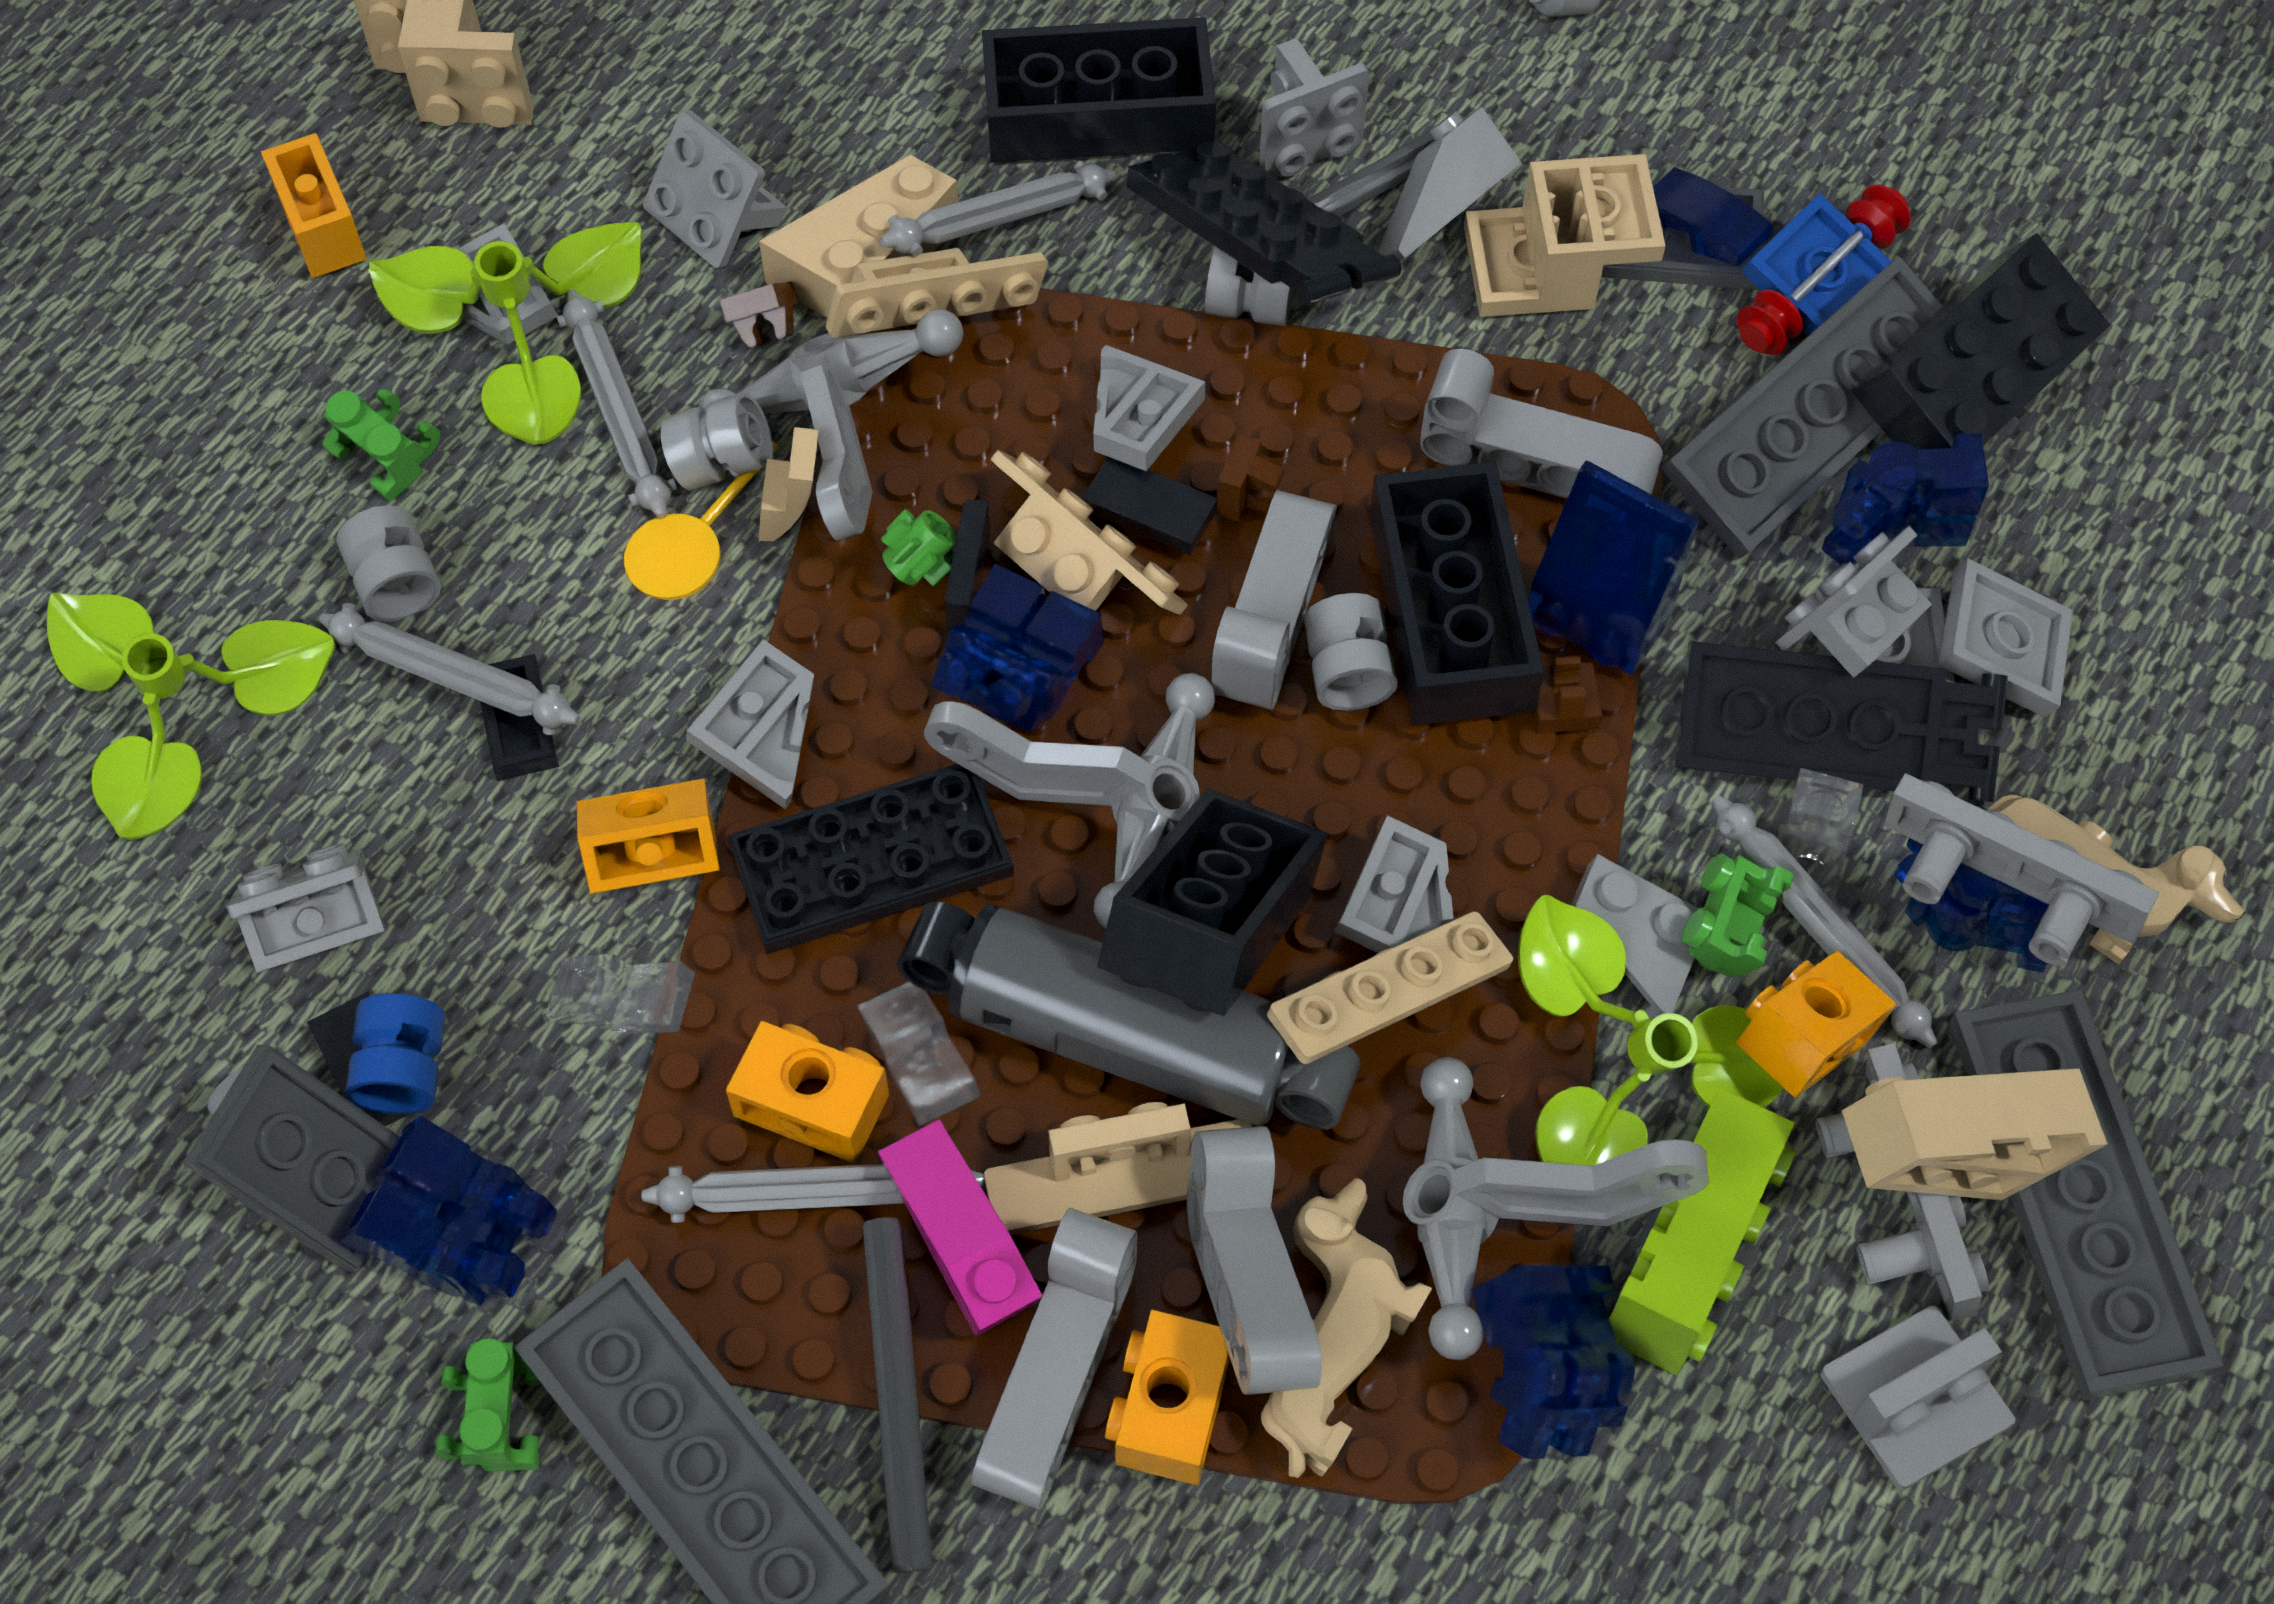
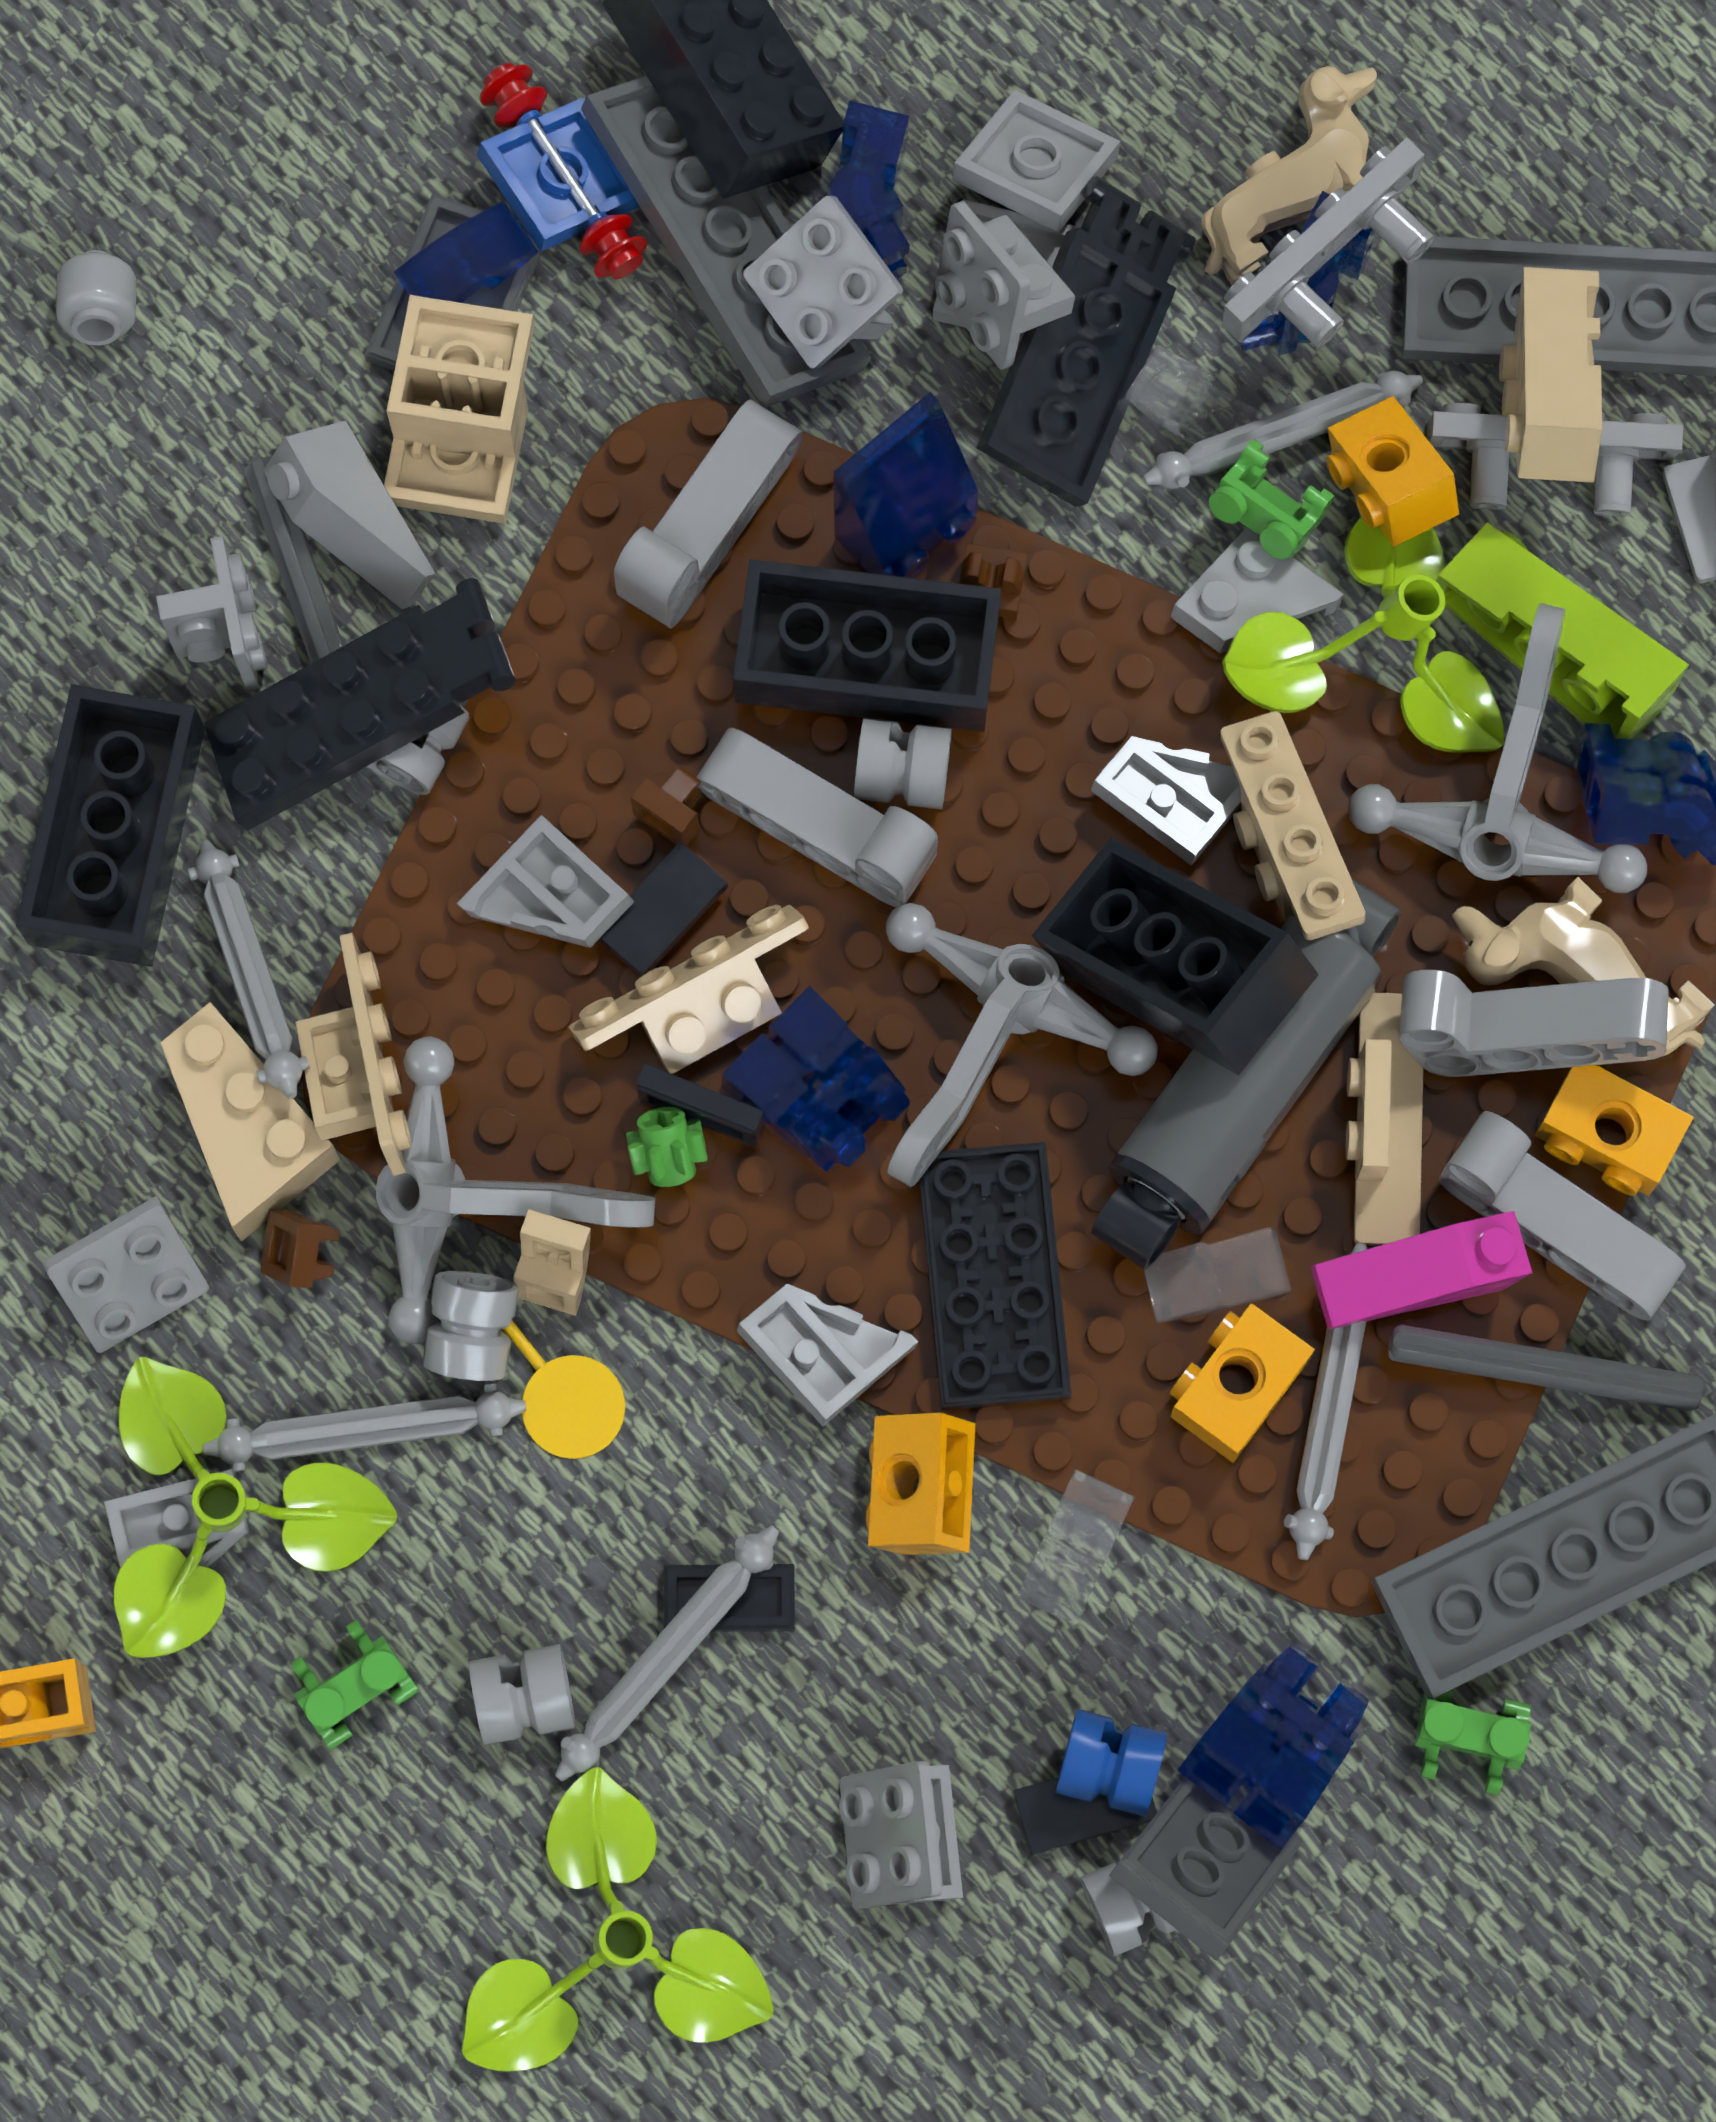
camera: 75 degrees left, 15 degrees up
(1795, 477) = (824, 283): none -> light grey bracket

